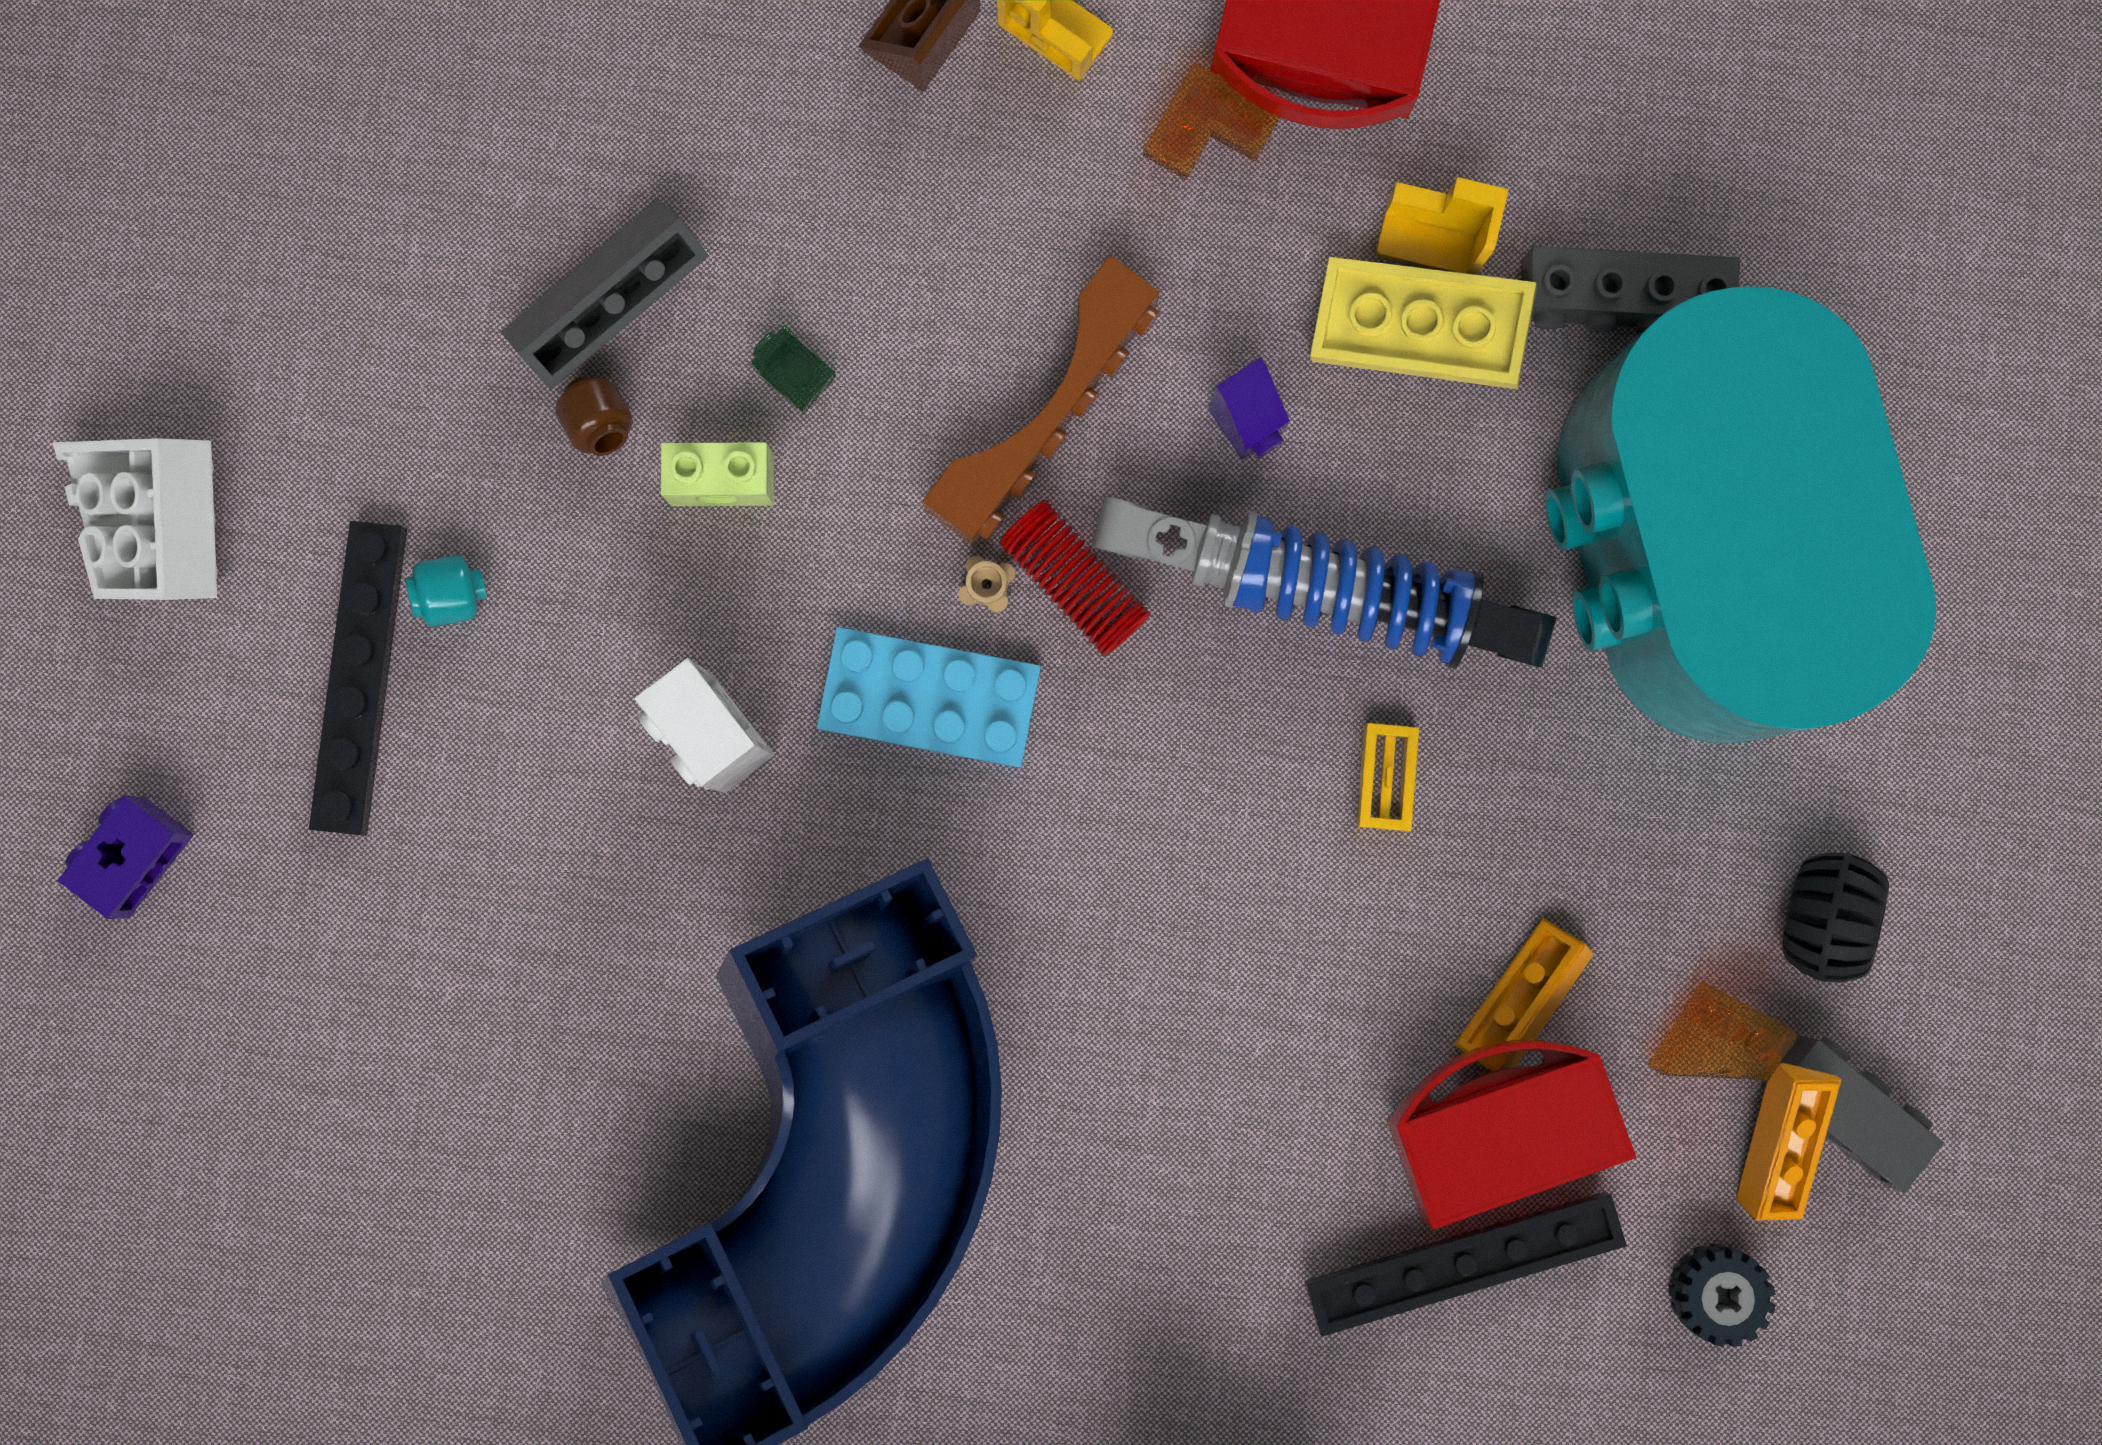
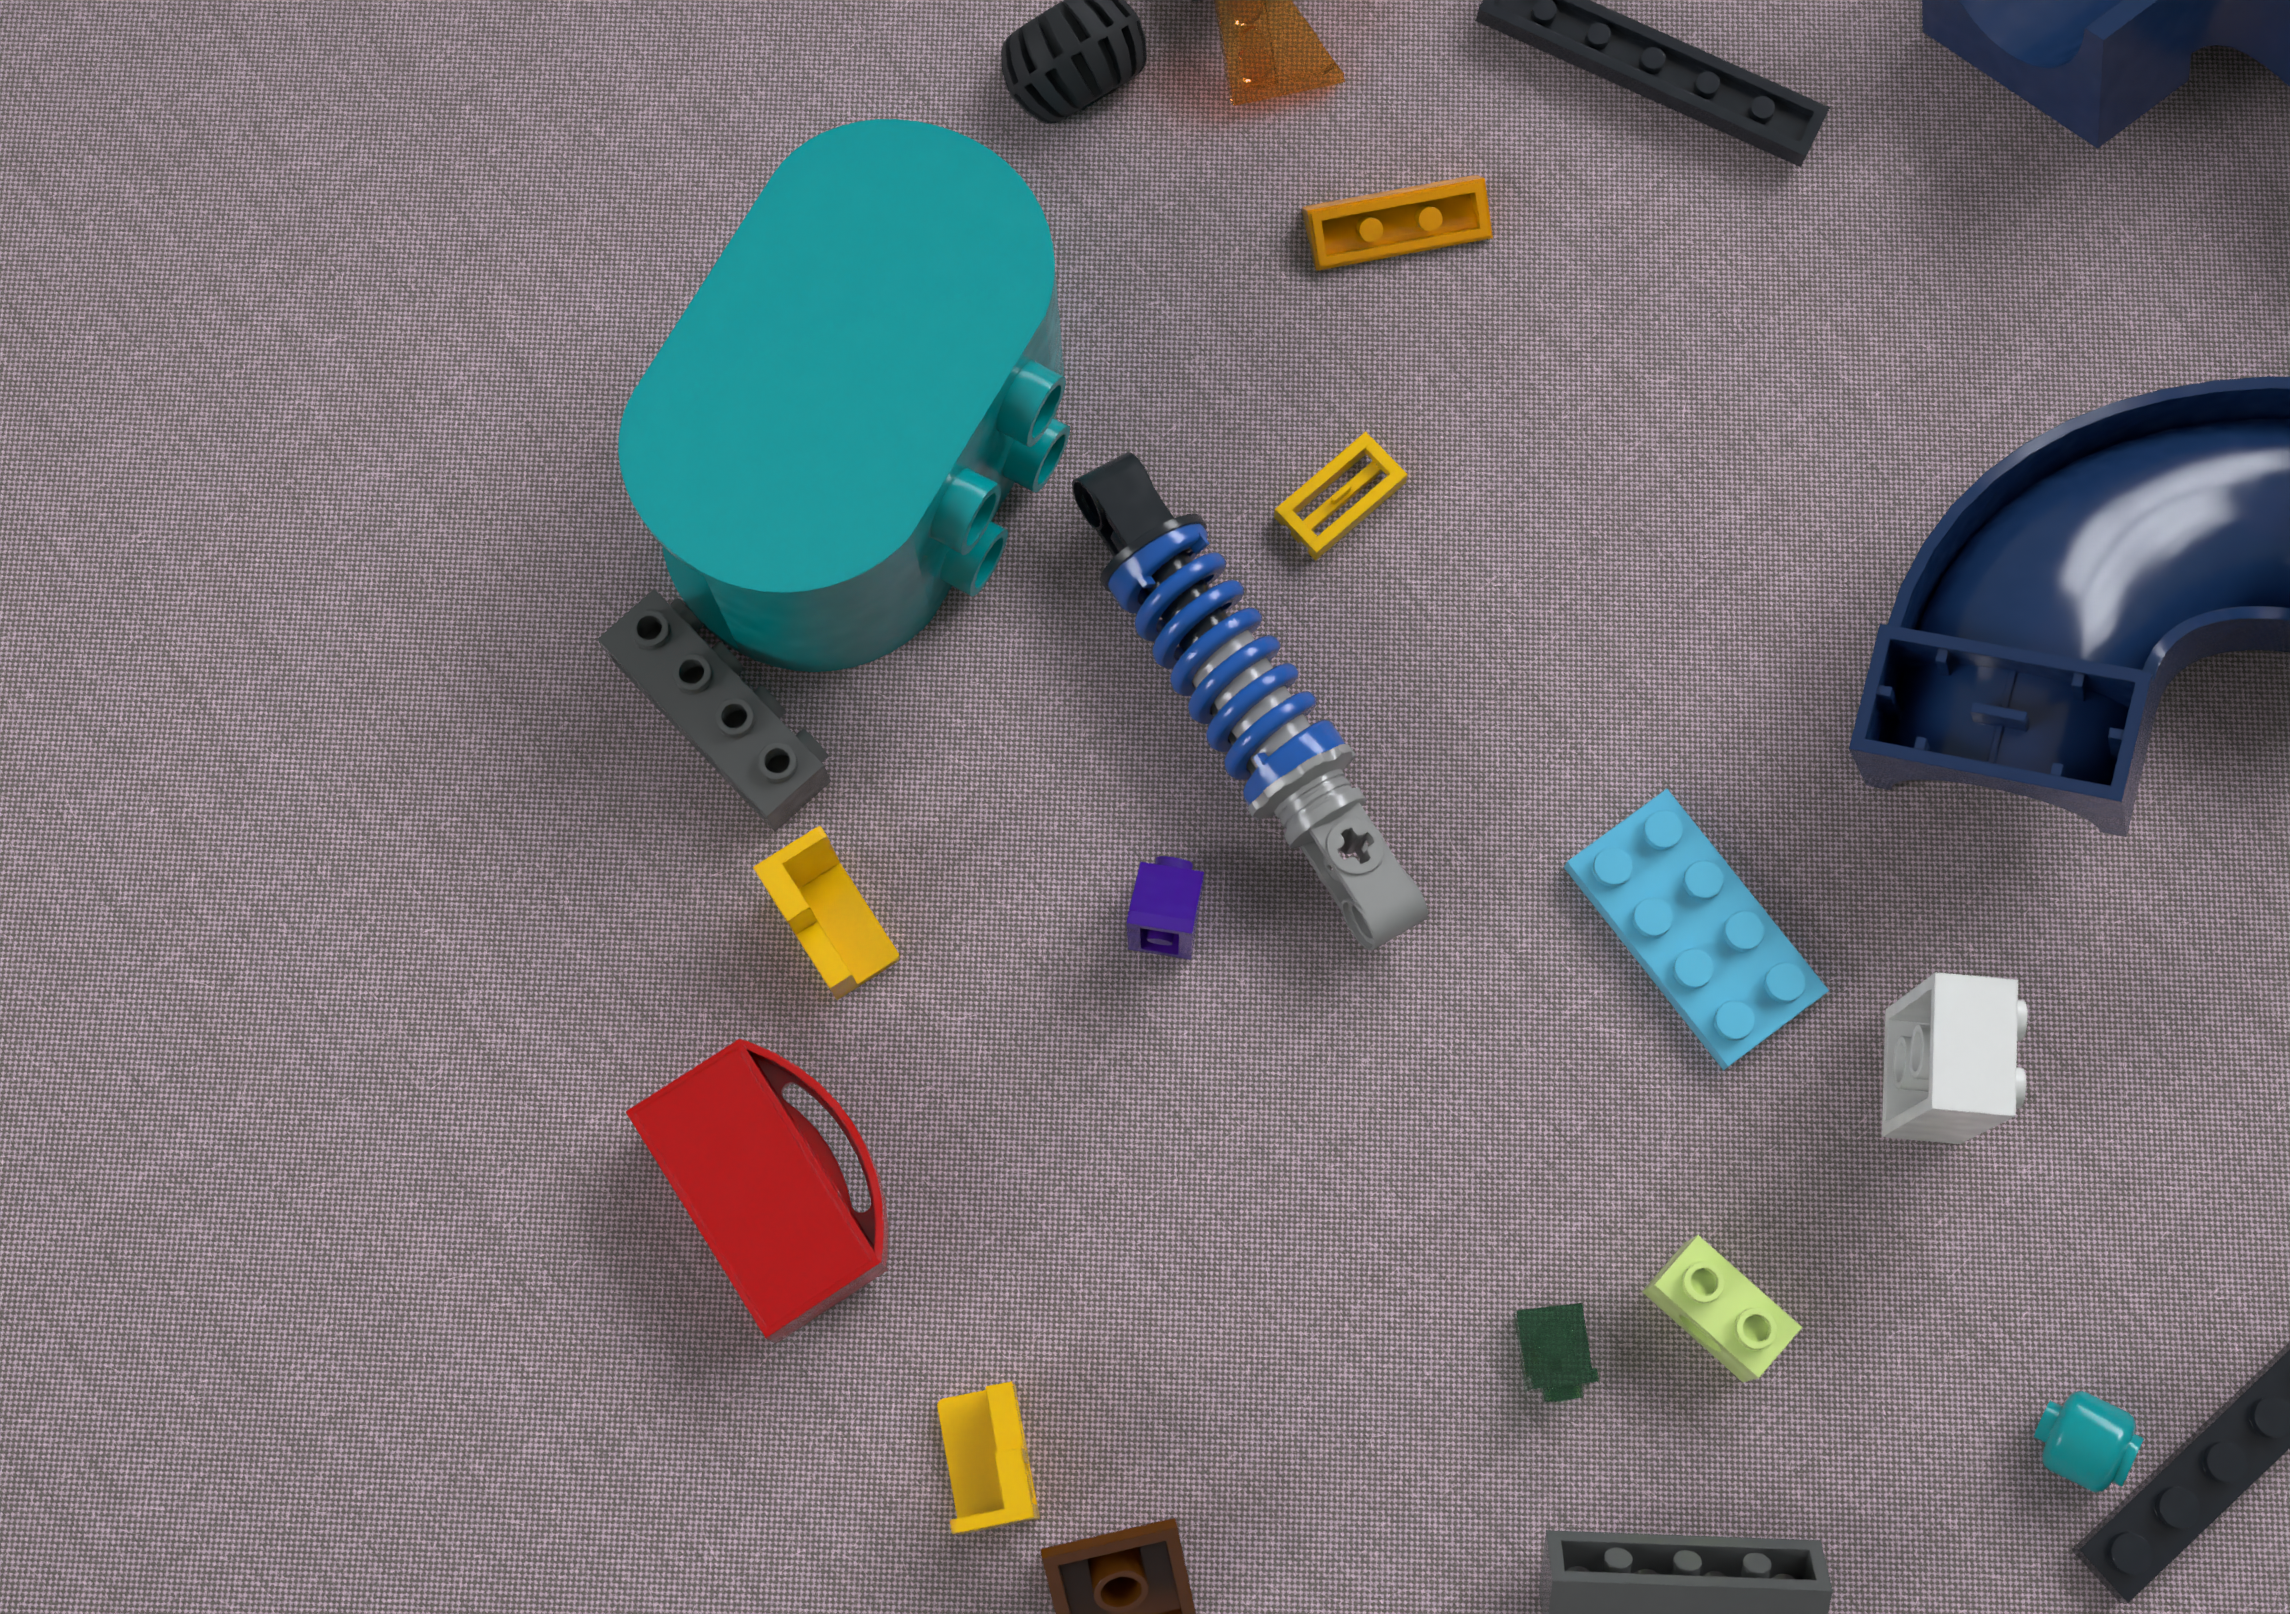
camera: 130 degrees left, 10 degrees down
(594, 415) = (1794, 1481): reddish brown head -> none
(979, 485) = (1479, 1072): dark orange arch -> none
(980, 570) = (1551, 963): tan plate -> none
(1033, 525) = (1467, 825): red piece -> none
(1206, 110) = (936, 1237): clear orange plate -> none
(1423, 322) = (930, 843): light yellow plate -> none
(1507, 1130) = (1522, 123): red piece -> none

